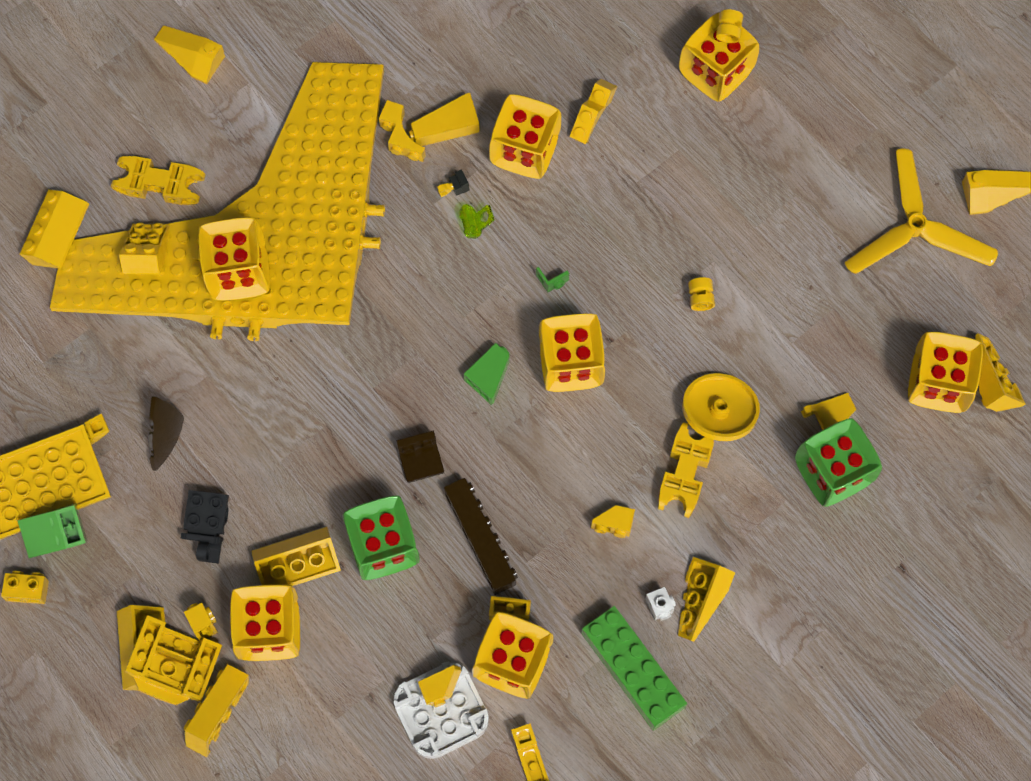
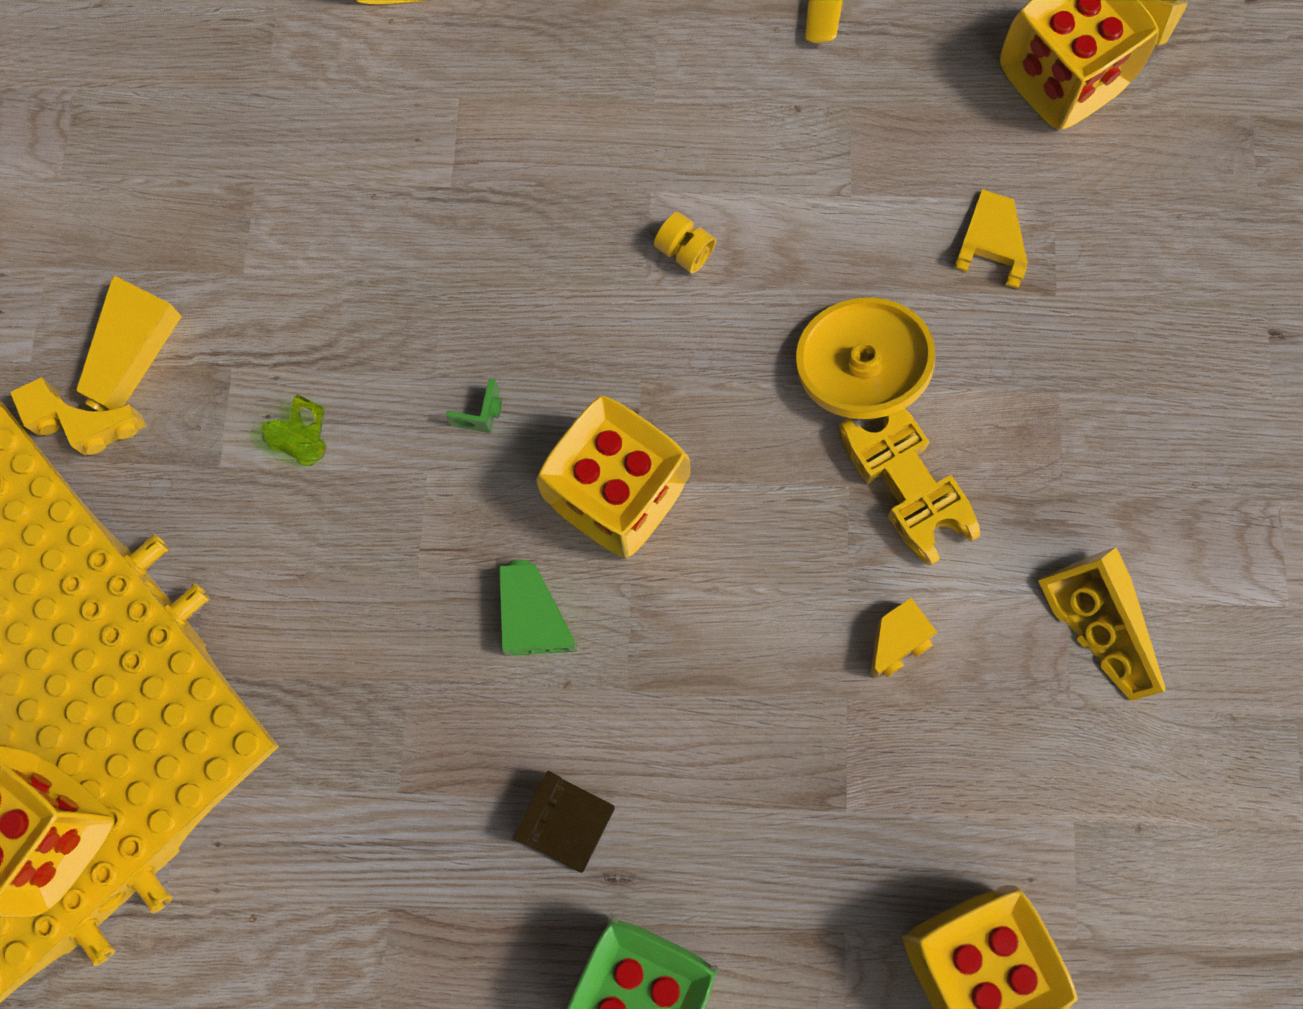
camera: 40 degrees left, 5 degrees up
(457, 183) = (223, 408): pearl dark grey piece -> none
(480, 537) = (756, 843): dark brown brick -> none
(512, 606) = (905, 903): yellow brick -> none
(525, 136) = (248, 259): yellow piece -> none
(592, 110) = (301, 149): yellow arch -> none
(633, 668) = (1137, 805): bright green brick -> none
(660, 604) = (1071, 684): white brick -> none
(838, 462) = (1087, 279): bright green piece -> none

